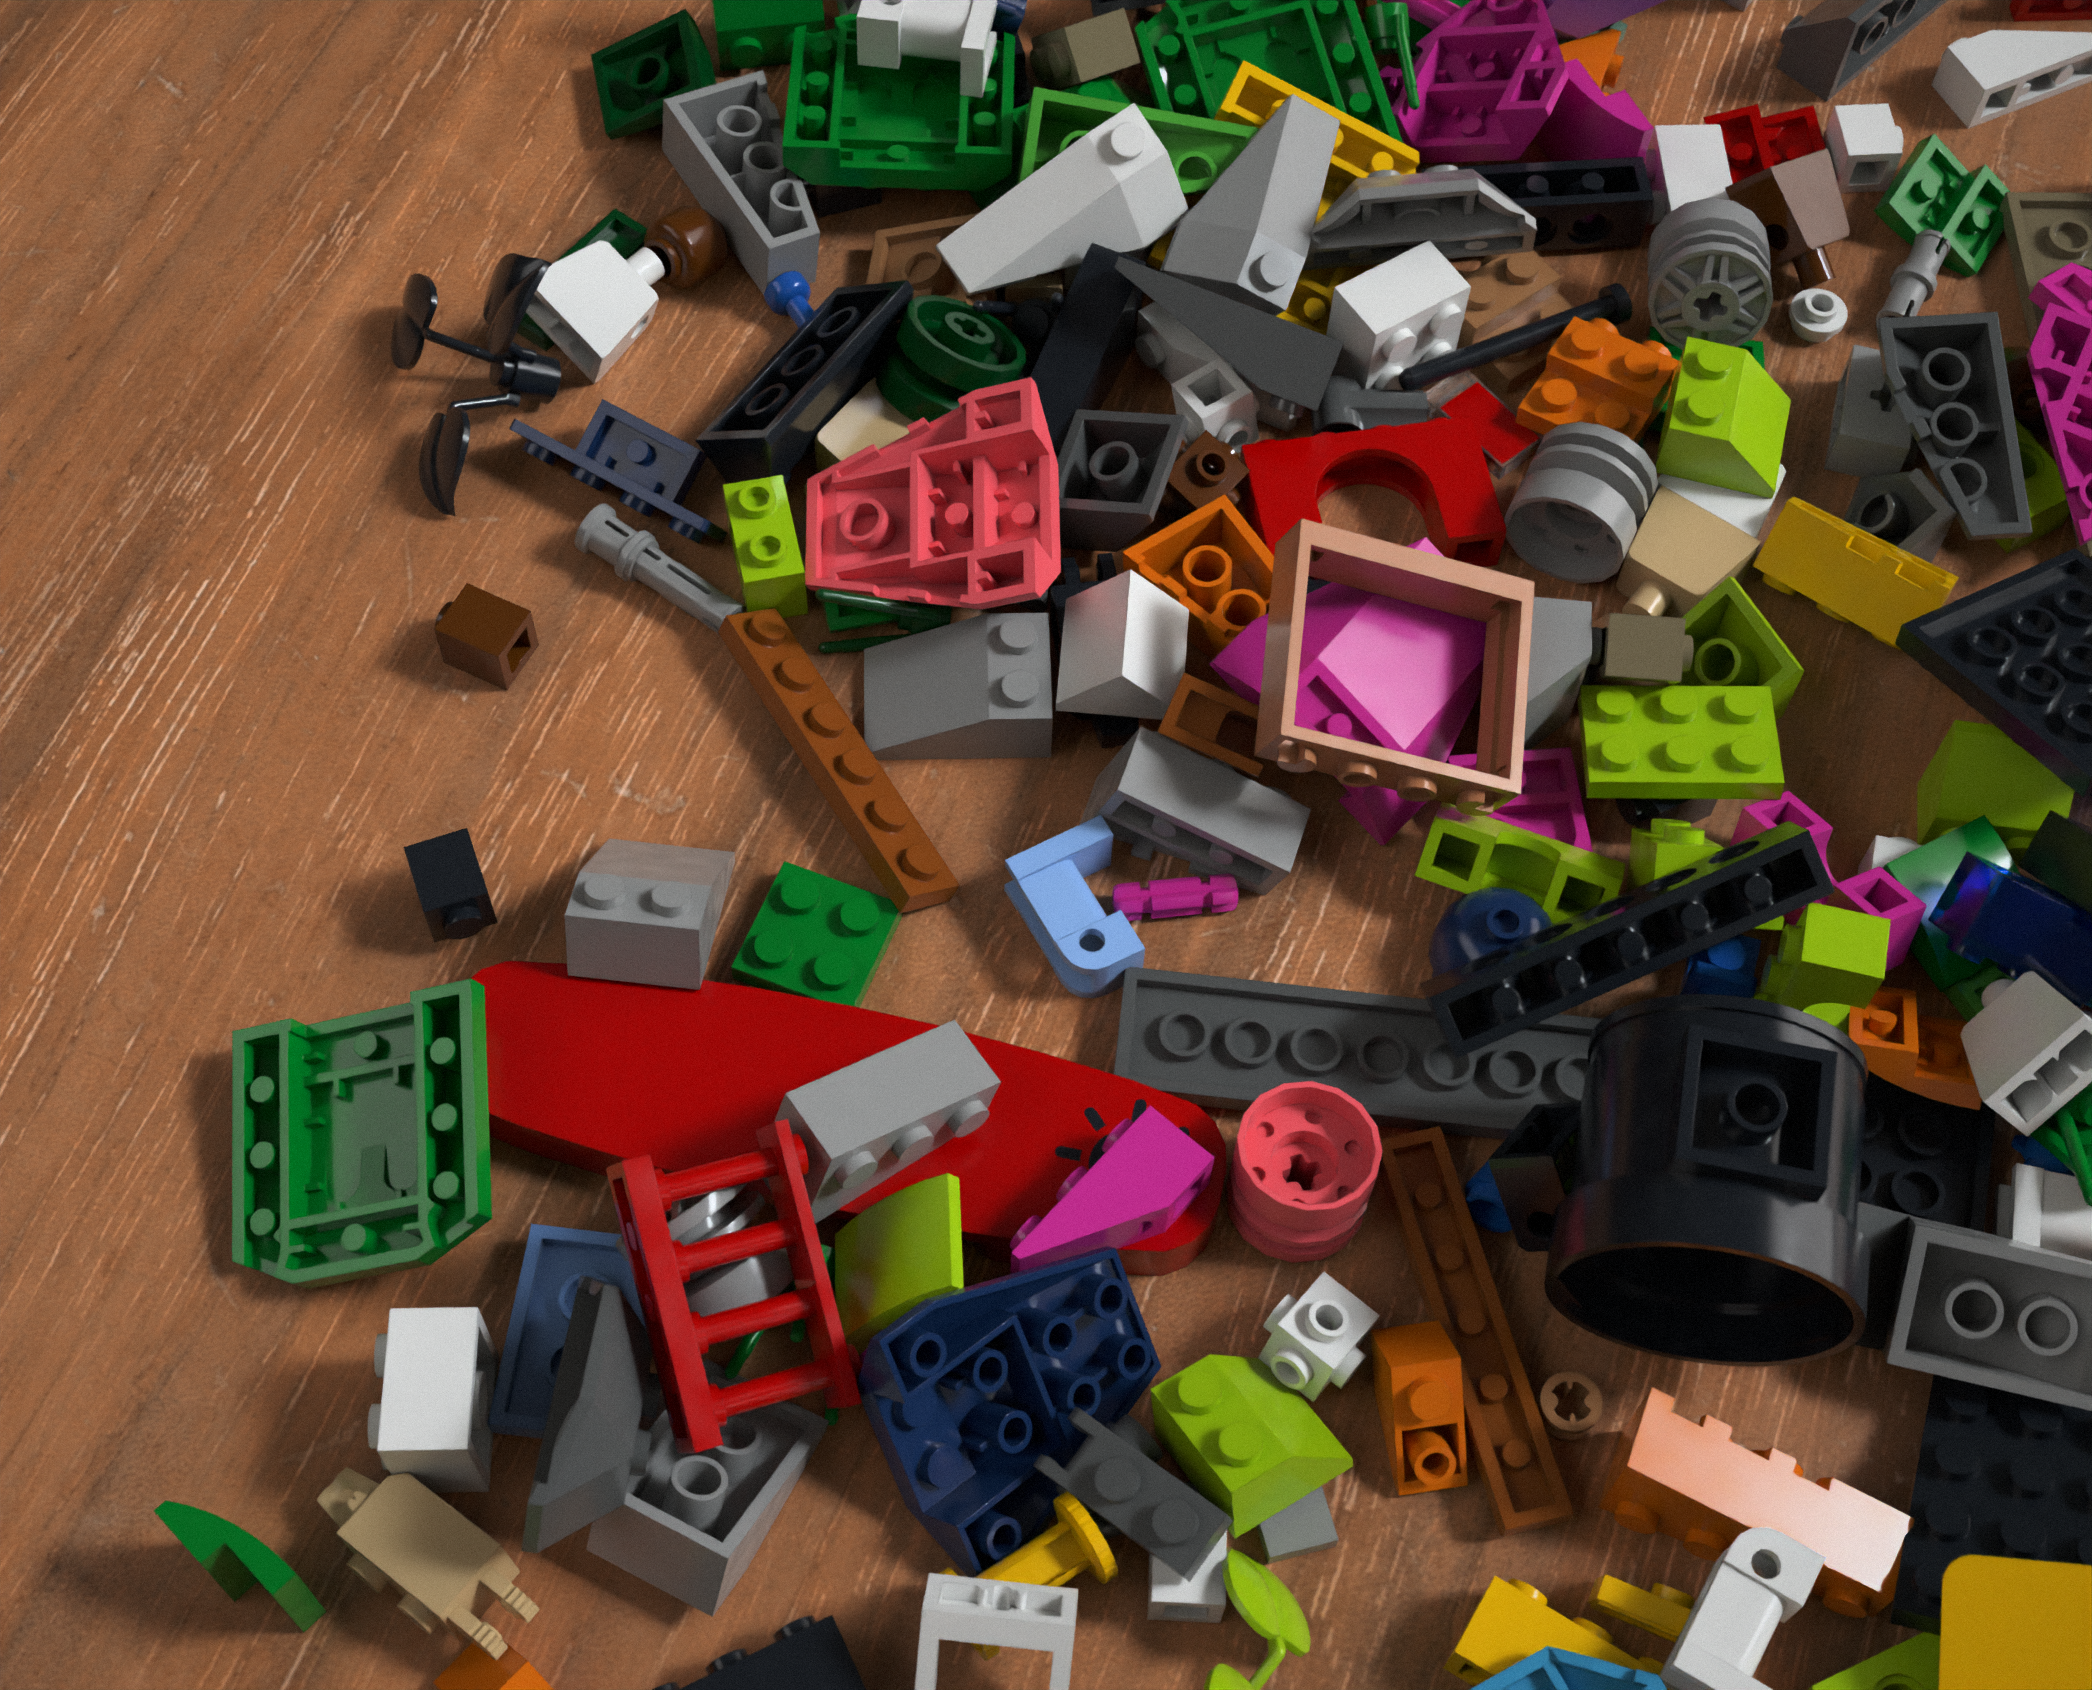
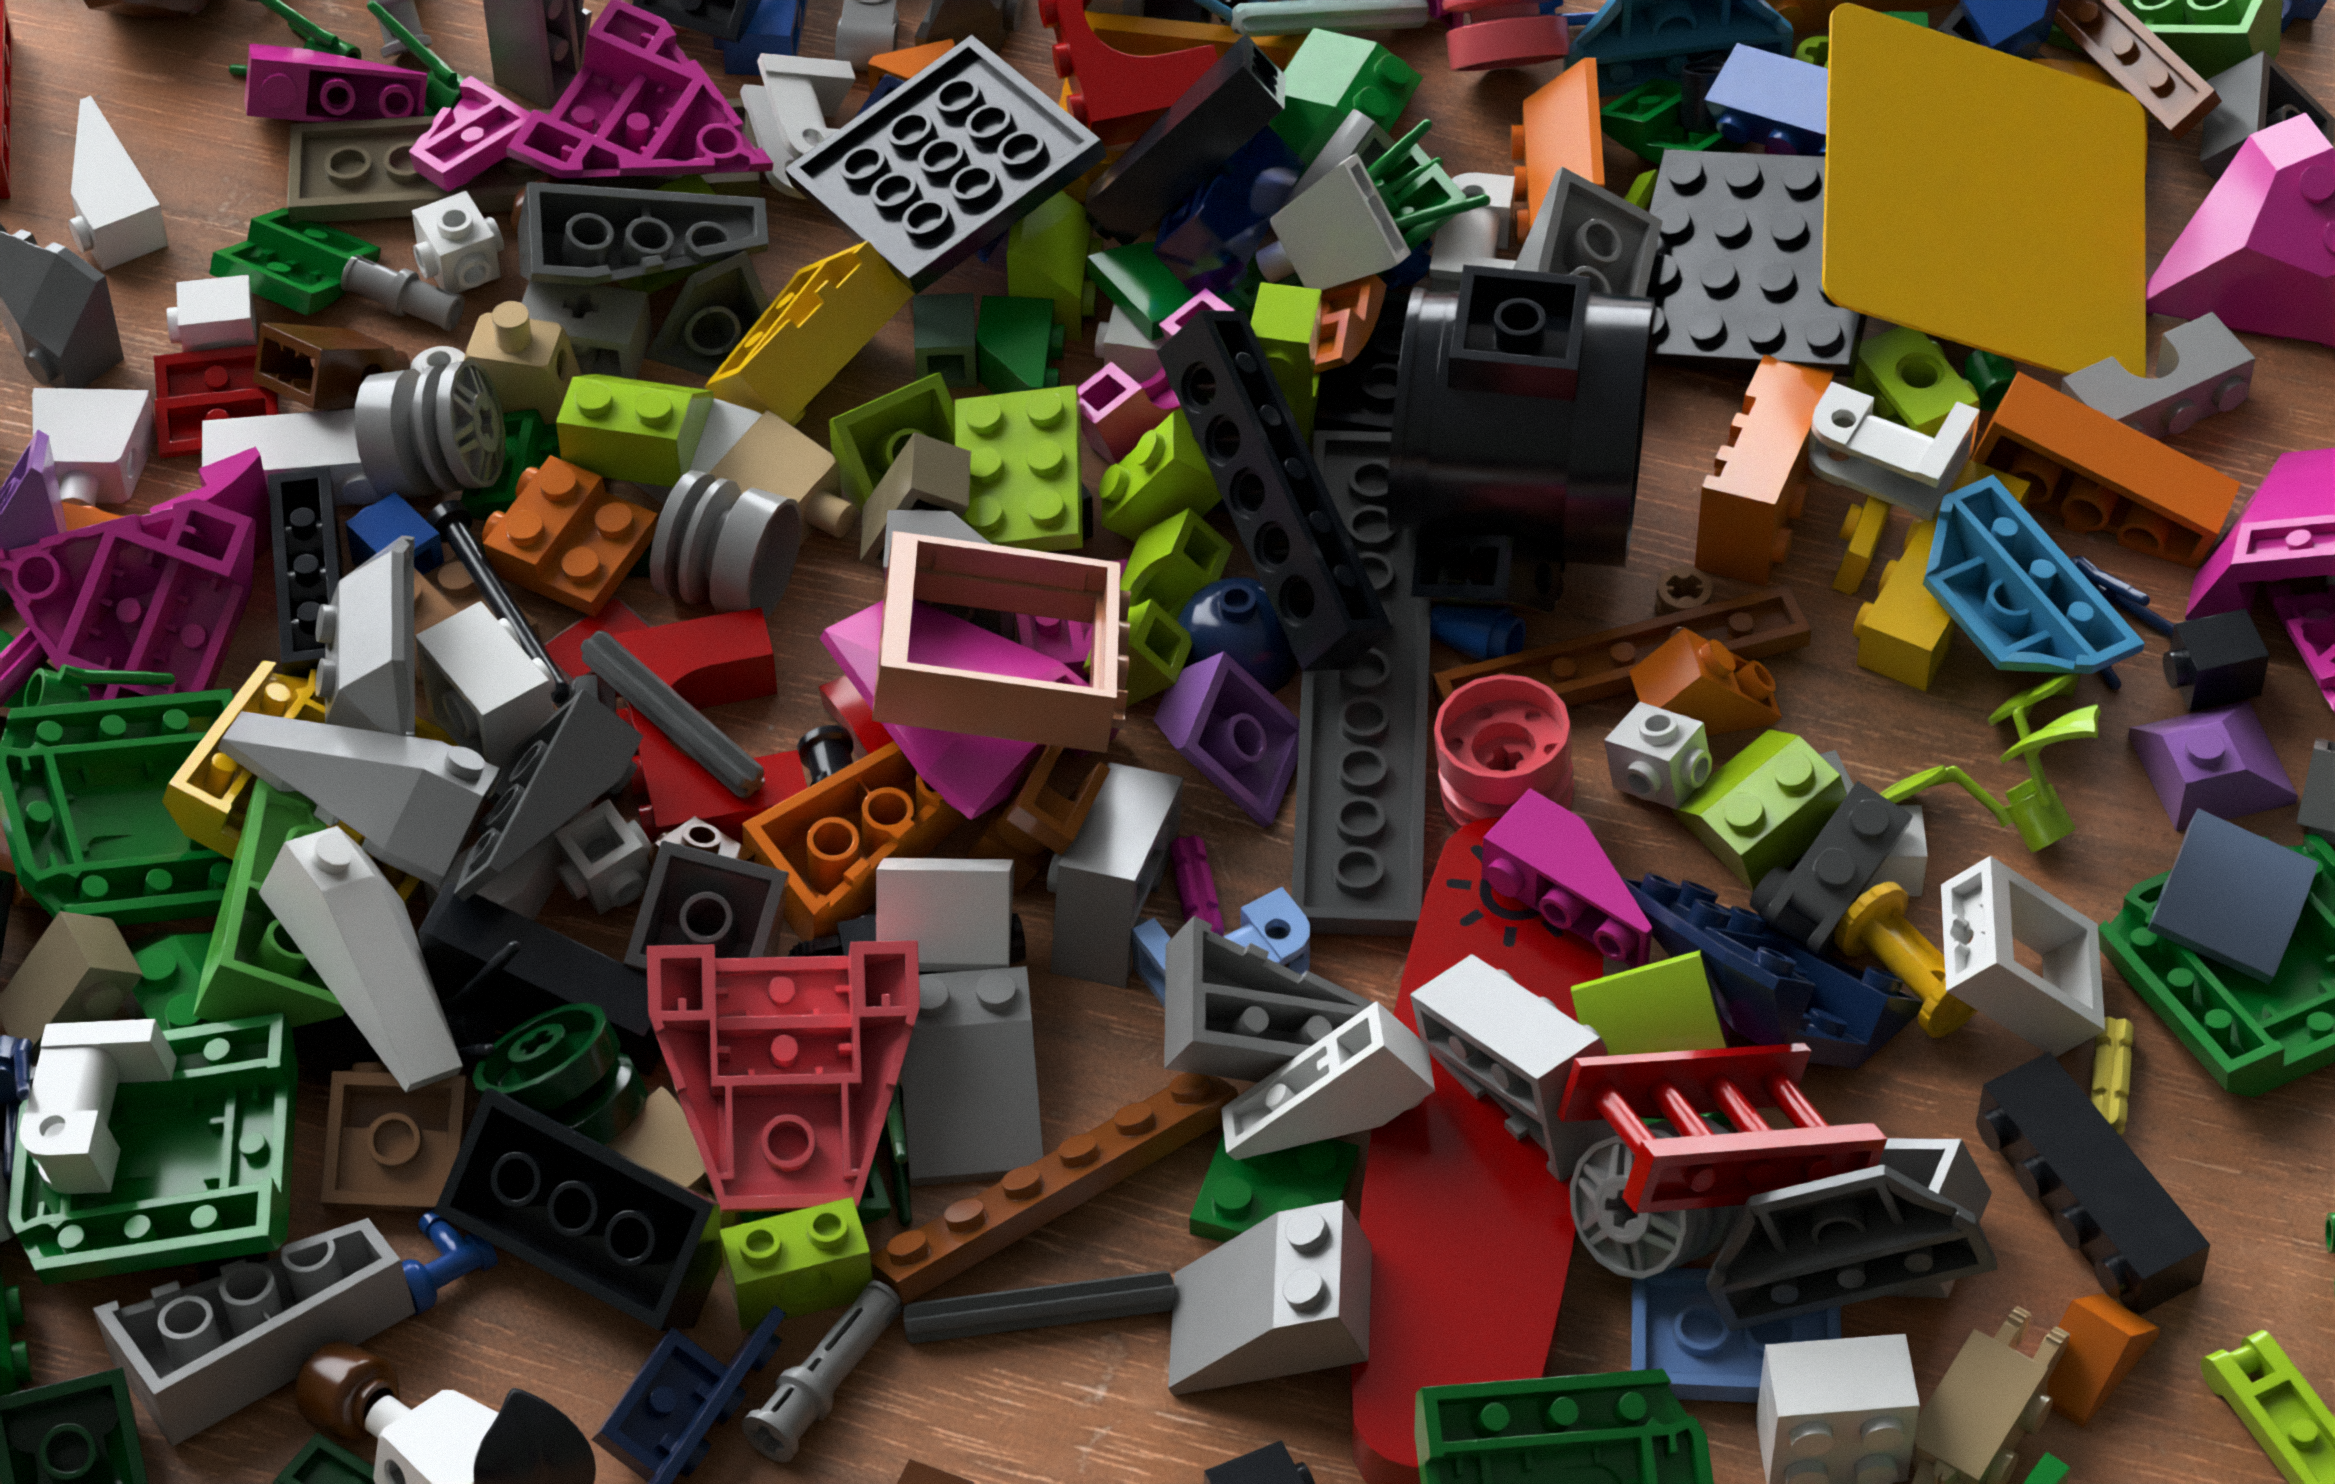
camera: 90 degrees left, 10 degrees down
(709, 741) = (1038, 1306): none -> dark grey axle
(871, 963) = (1334, 1088): none -> white slope
(967, 908) = (1239, 1011): none -> light grey wedge
(1349, 924) = (1232, 733): none -> medium lavender slope
(1362, 450) = (673, 714): none -> dark grey axle
(1595, 263) = (387, 521): none -> blue brick
(1699, 63) = (96, 440): none -> white torso
(1808, 335) = (525, 359): none -> tan torso
(1873, 774) = (1018, 344): none -> green slope
(1887, 710) = (945, 338): none -> sand green brick
(1975, 293) = (456, 243): none -> white brick

